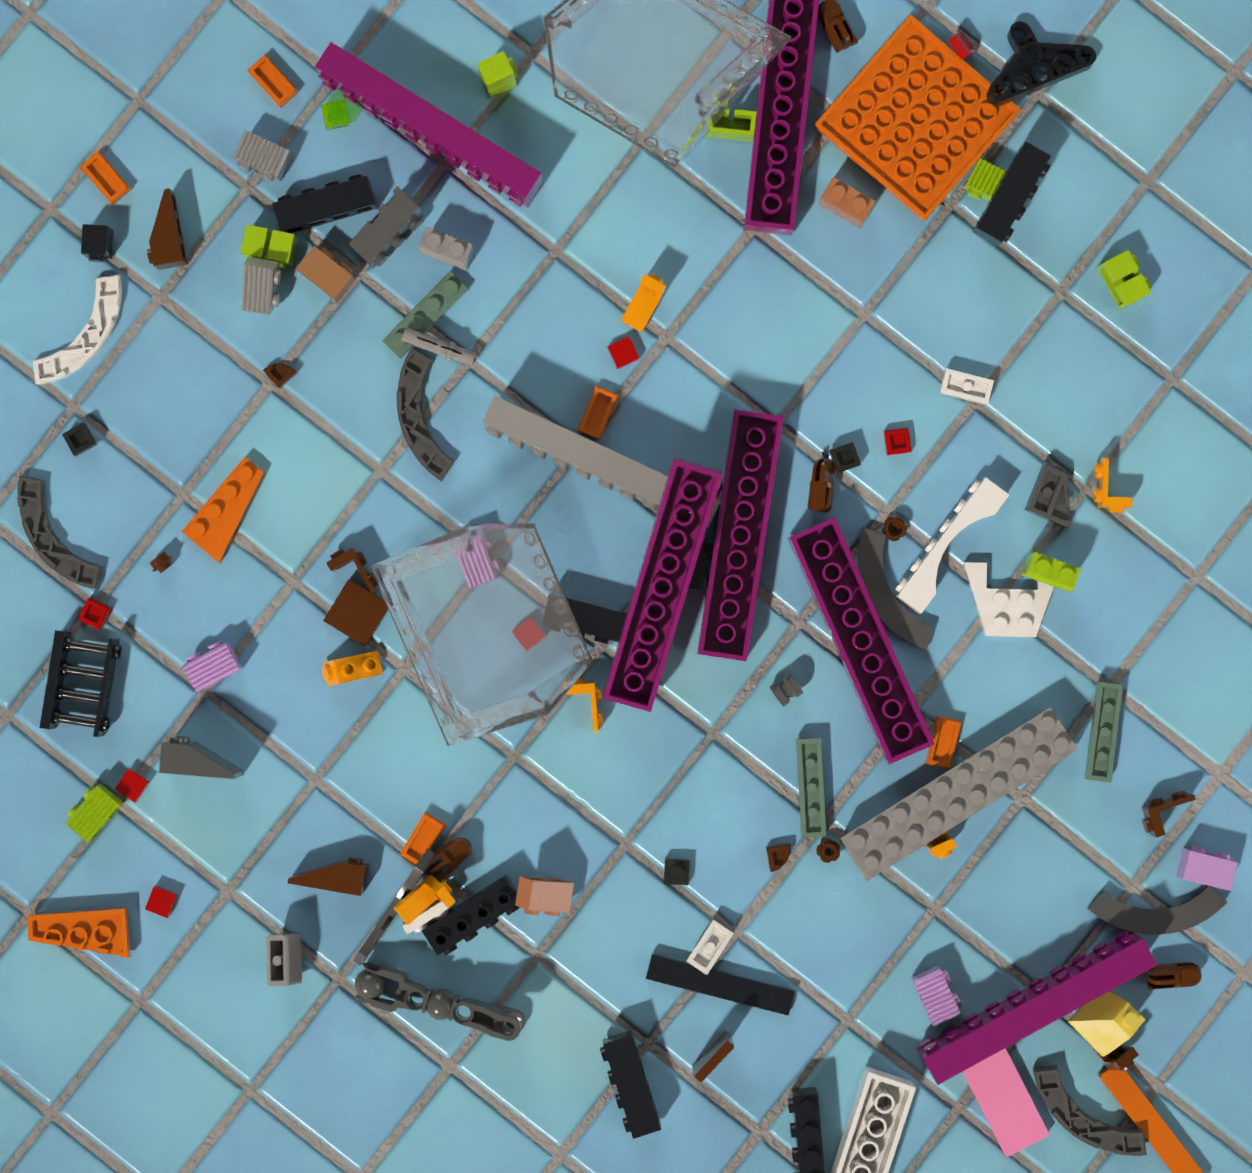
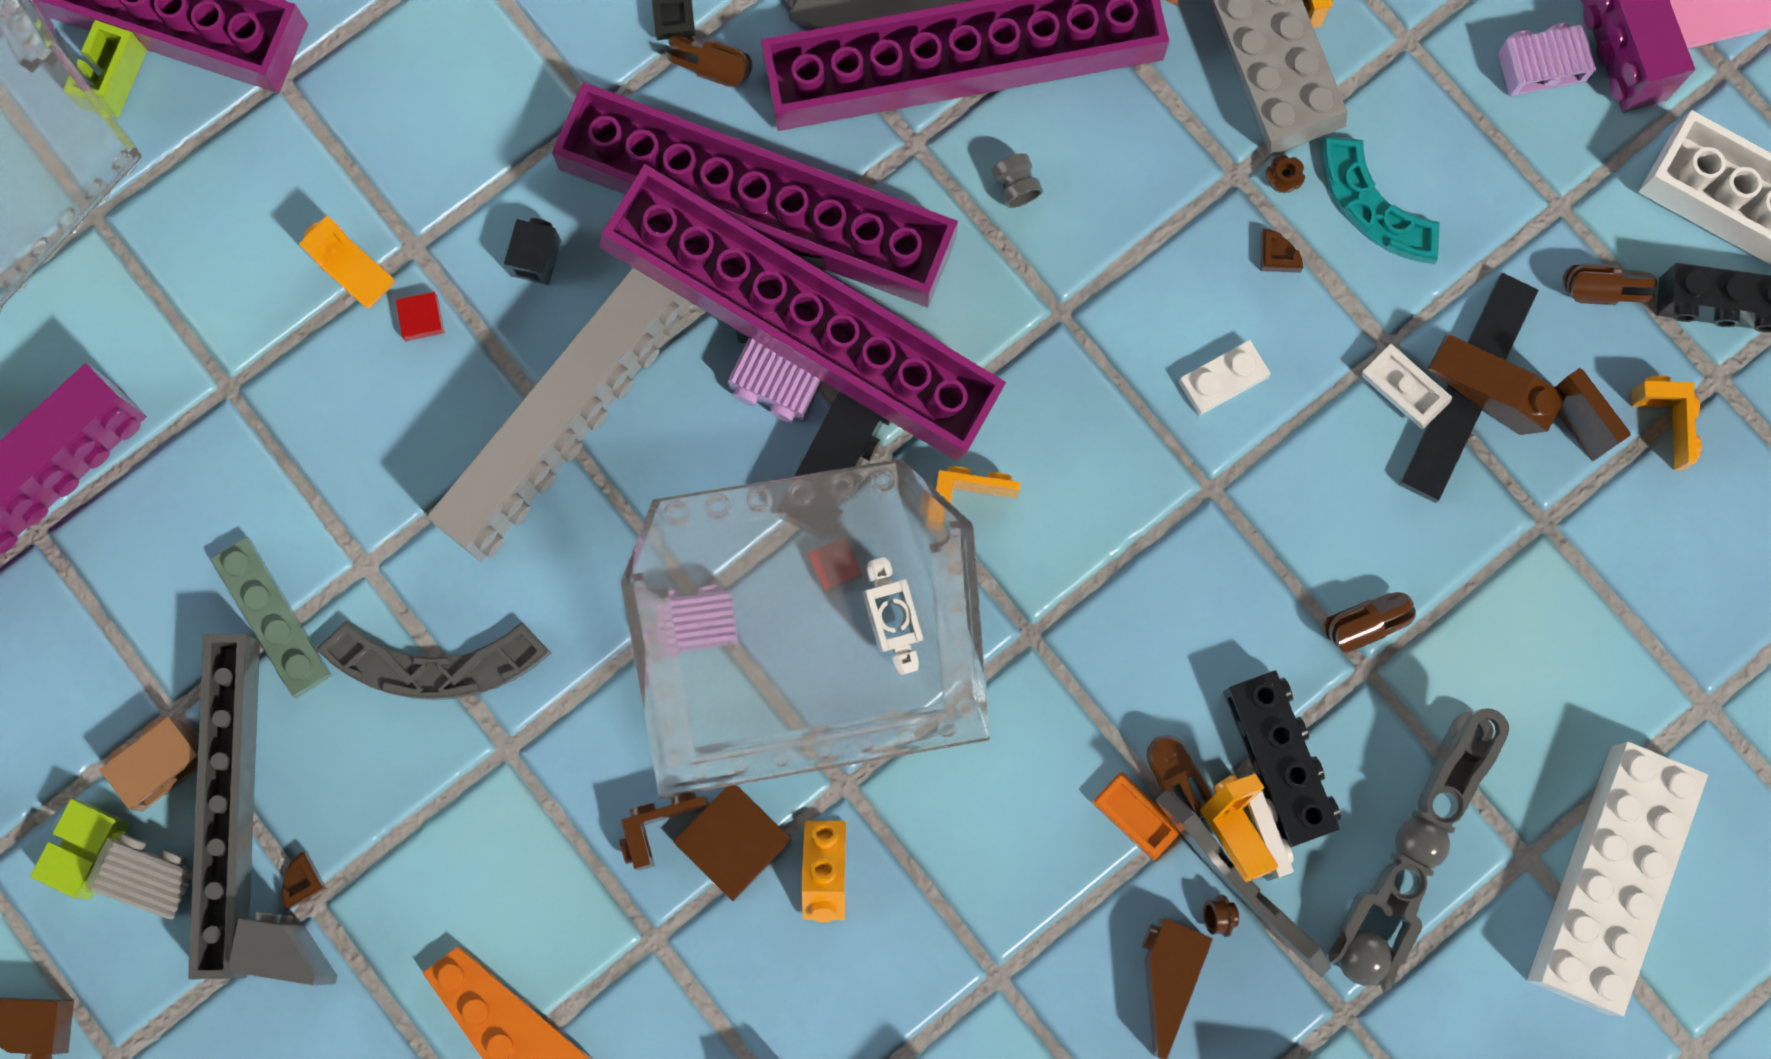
camera: 80 degrees left, 10 degrees down
(236, 376) = (278, 950): none -> dark grey slope
(309, 321) = (223, 801): none -> dark grey brick
(325, 204) = (40, 738): black brick -> none
(376, 898) = (1220, 916): none -> reddish brown plate
(387, 229) = (108, 642): dark grey wedge -> none
(438, 346) = (332, 596): light grey pin -> none
(446, 248) = (170, 555): light grey brick -> none
(446, 1118) = (1617, 878): none -> white brick
(492, 687) = (880, 573): none -> white piece
(544, 894) = (1272, 628): nougat brick -> none
(564, 951) = (1369, 621): none -> reddish brown arm
(597, 413) = (499, 373): orange tile -> none
(628, 567) = (774, 382): none -> lavender brick
(631, 1084) = (1611, 557): black brick -> none
(676, 871) = (1273, 415): pearl dark grey plate -> none
(677, 410) = (533, 250): none -> black brick
(693, 838) = (1224, 377): none -> white plate
(719, 999) = (1497, 386): none -> reddish brown slope
(732, 1114) = (1685, 405): none -> light orange bracket
(800, 1057) = (1608, 284): none -> reddish brown arm
(811, 787) = (1180, 177): sand green plate -> none
(818, 904) = (1367, 209): none -> teal tile

